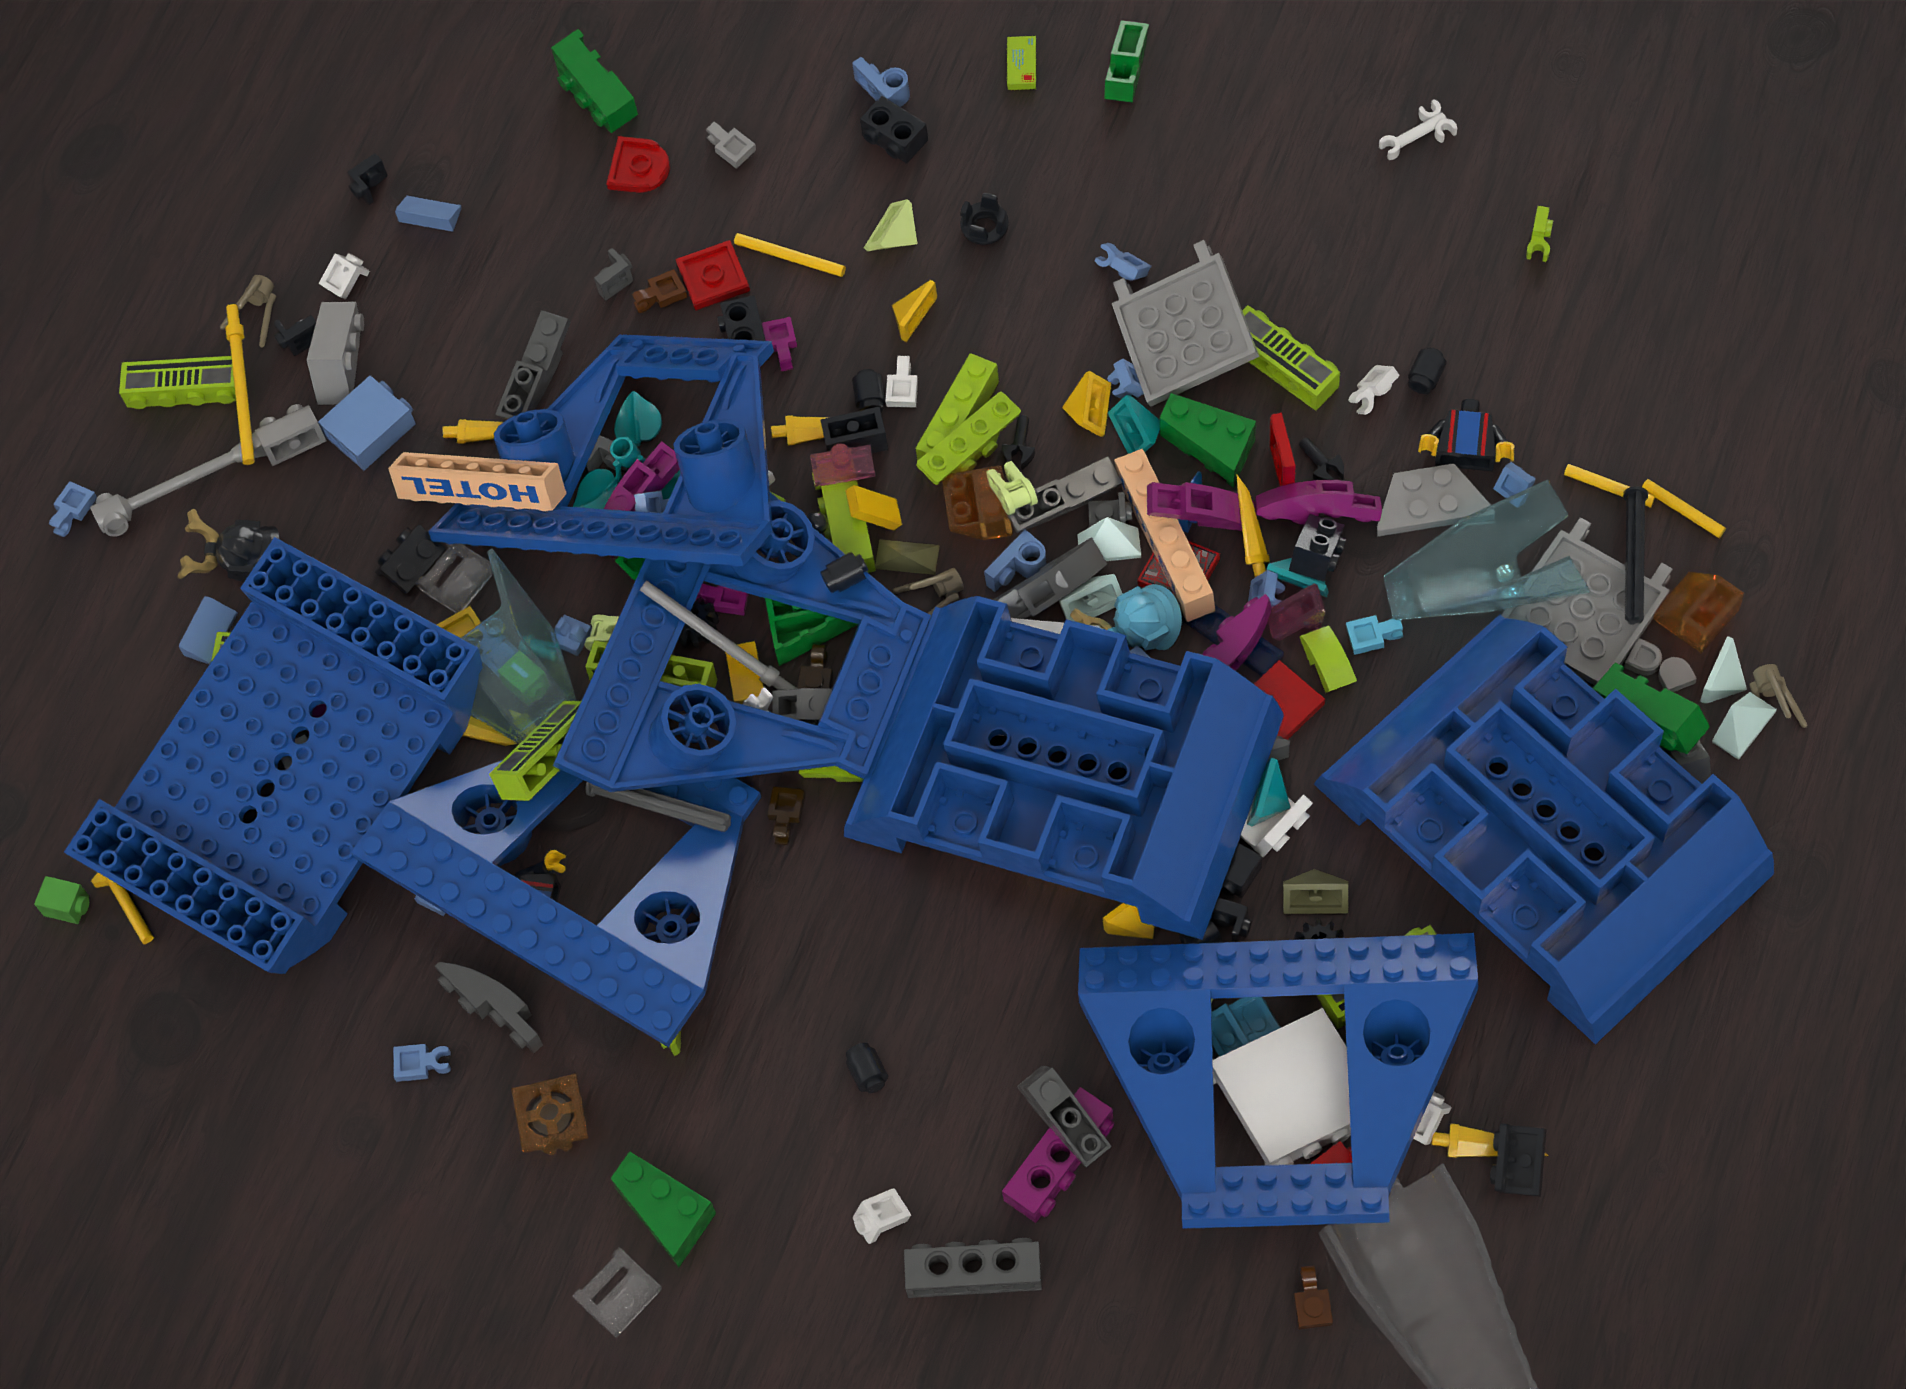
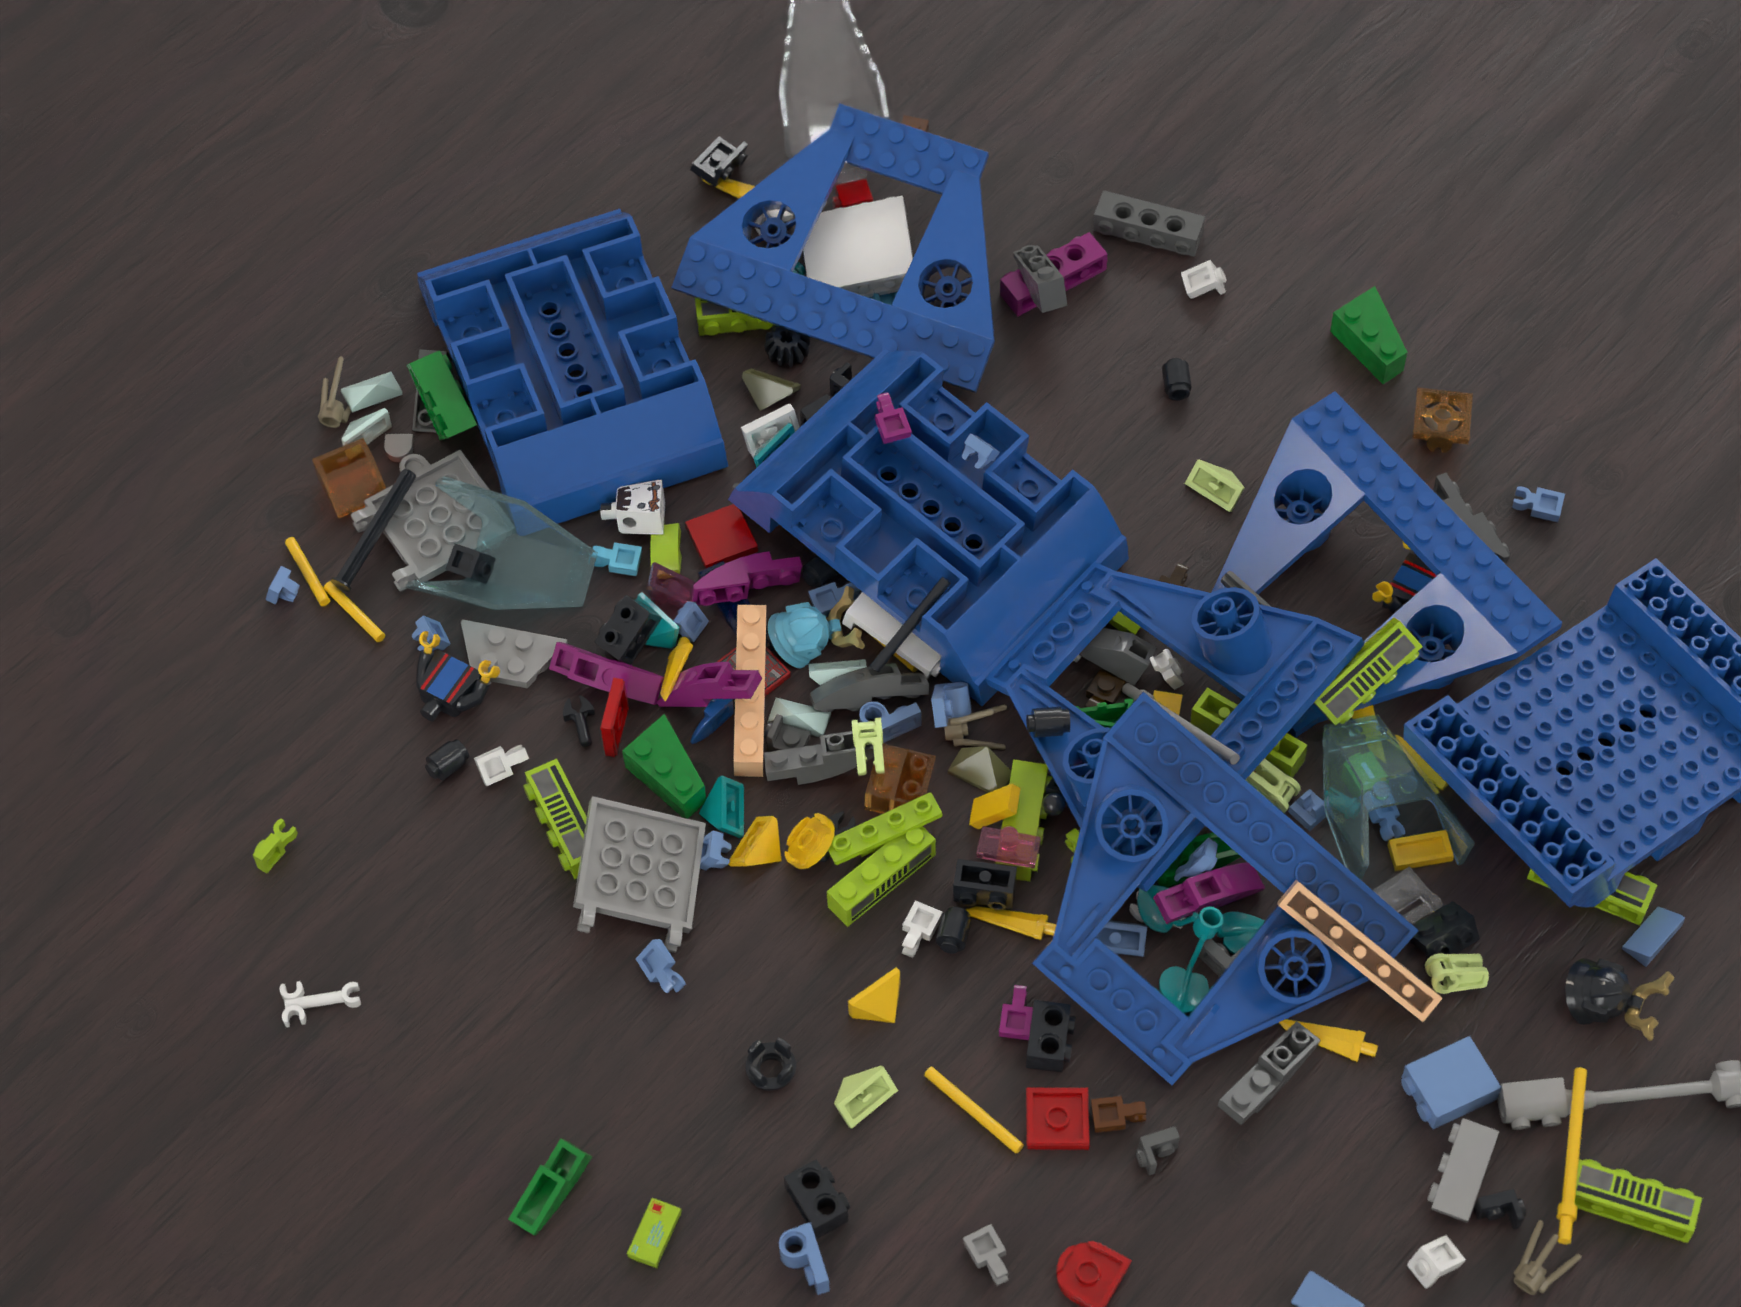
camera: 165 degrees left, 5 degrees down
(395, 523) = (1458, 973): none -> yellowish green piece
(624, 1300) = (1420, 293): clear plate -> none
(777, 958) = (1215, 484): none -> yellowish green slope
(963, 573) = (950, 701): none -> medium blue plate
(1017, 789) = (985, 451): none -> medium blue tile
(1022, 618) = (910, 624): none -> black bar
(1037, 413) = (809, 841): none -> yellow tile
(1126, 778) = (890, 421): none -> magenta plate
(1377, 684) = (638, 508): none -> white torso
(1514, 551) = (470, 563): none -> black bracket
(1694, 474) = (282, 587): none -> medium blue tile

